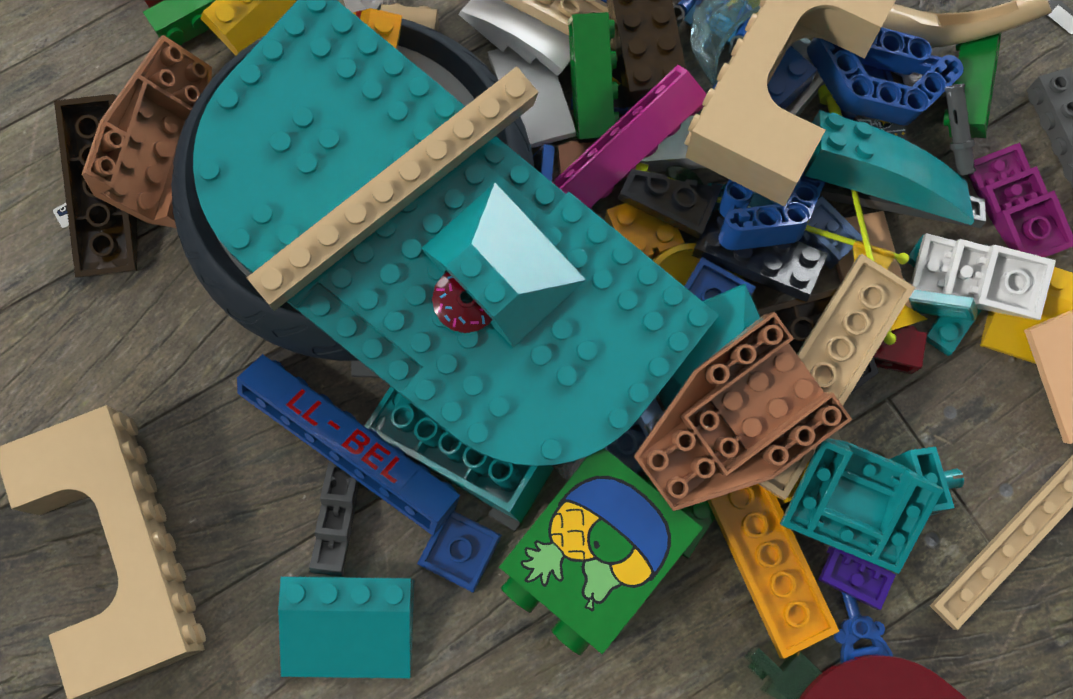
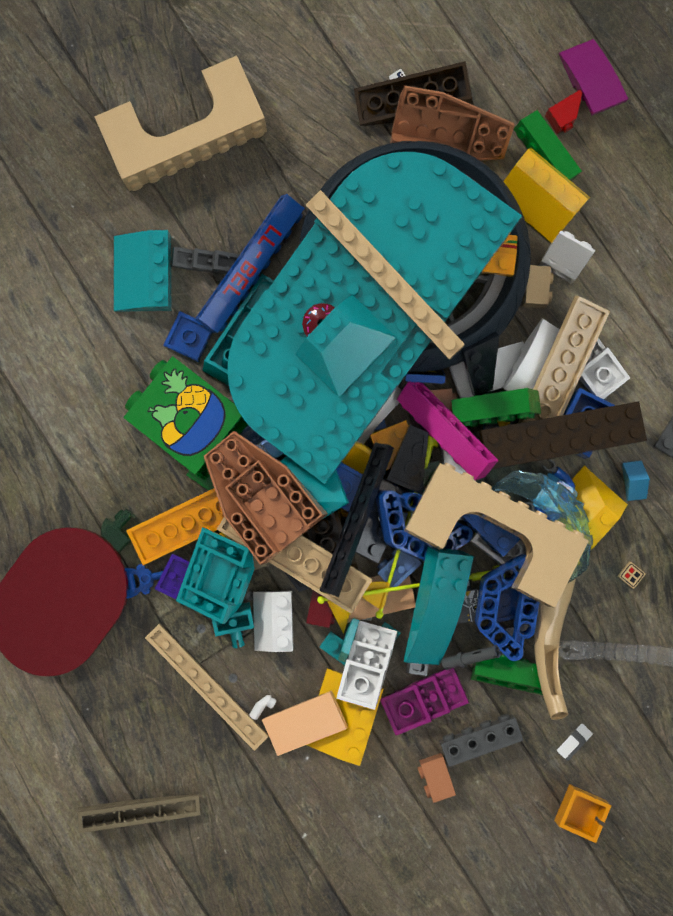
camera: 90 degrees right, 10 degrees up
(551, 97) = (481, 364): none -> black wing
(772, 274) = (356, 519): none -> black plate
(917, 419) = (273, 621): none -> white slope
(1052, 447) = (260, 705): none -> white arm

